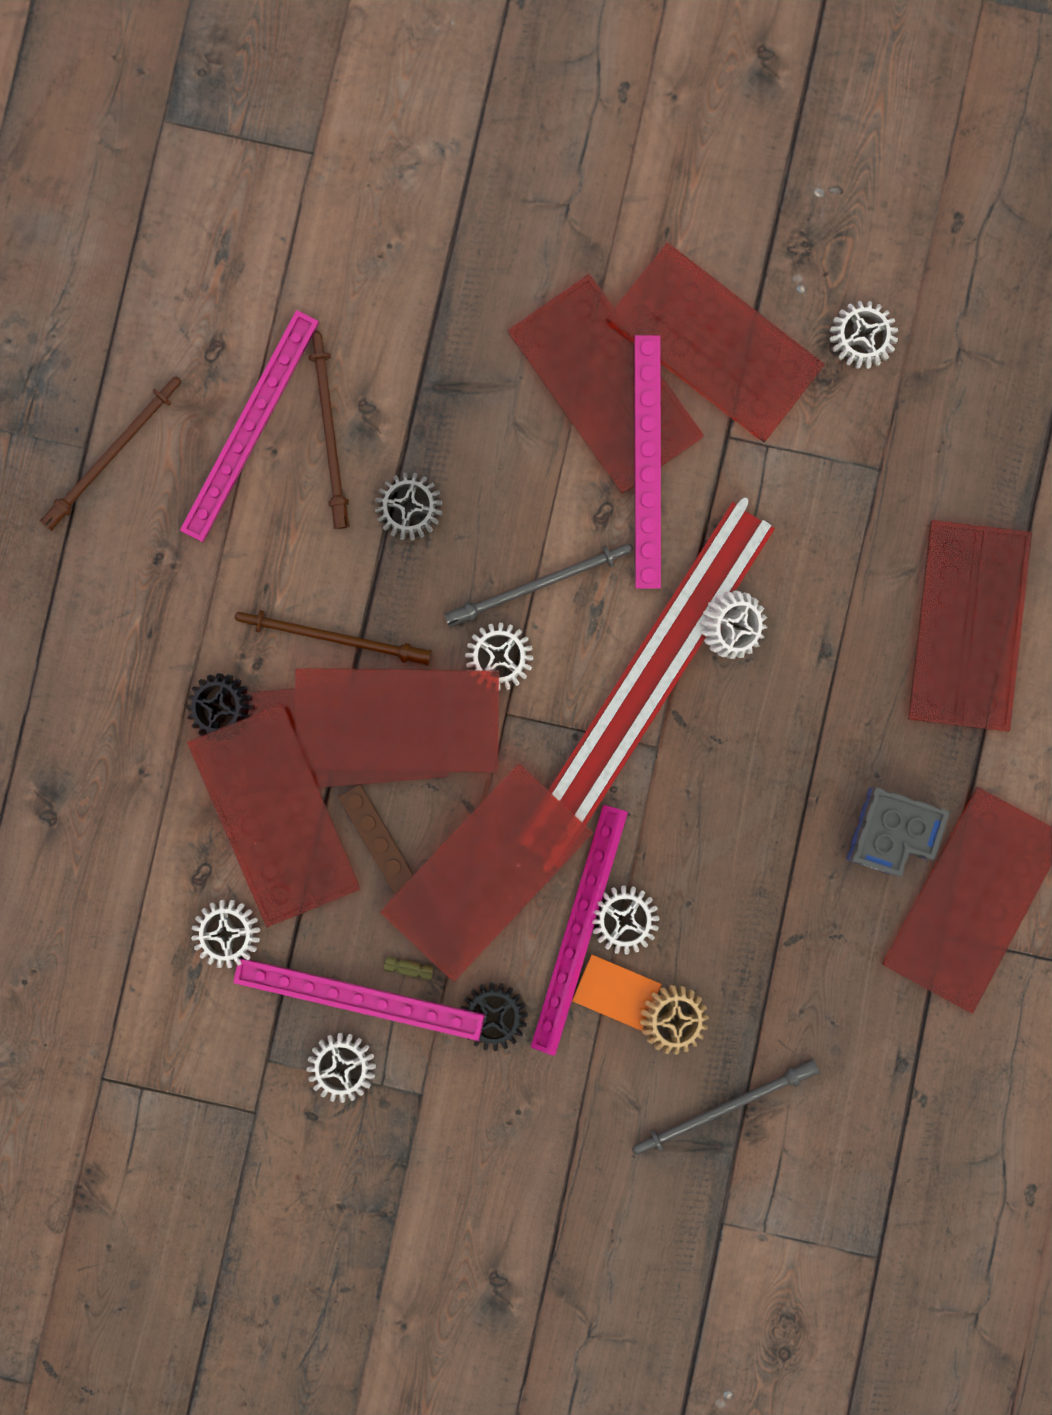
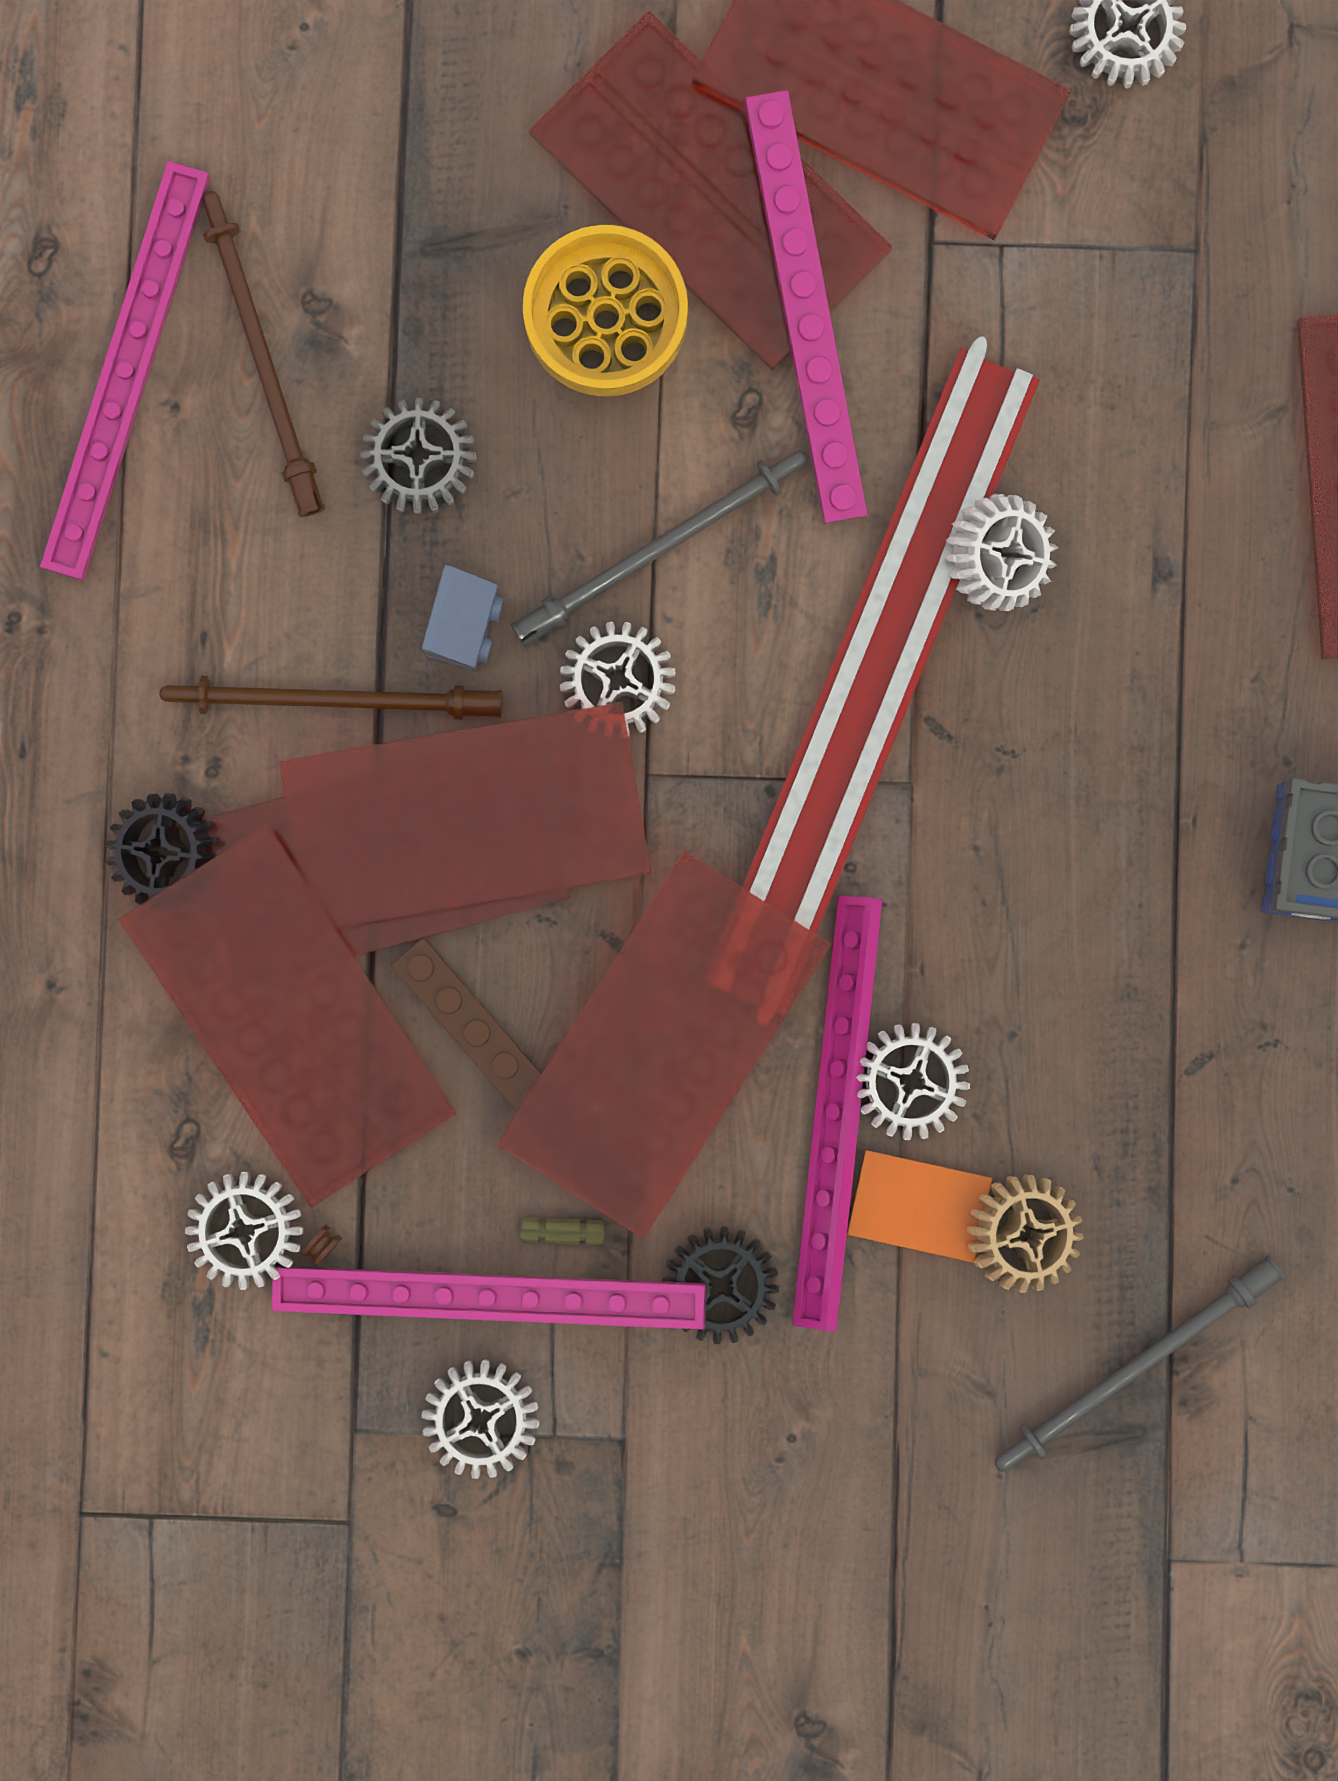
camera: 15 degrees left, 0 degrees up
(268, 950) = (321, 1245): none -> reddish brown bush
(416, 606) = (462, 620): none -> sand blue slope
(531, 410) = (594, 256): none -> yellow wheel

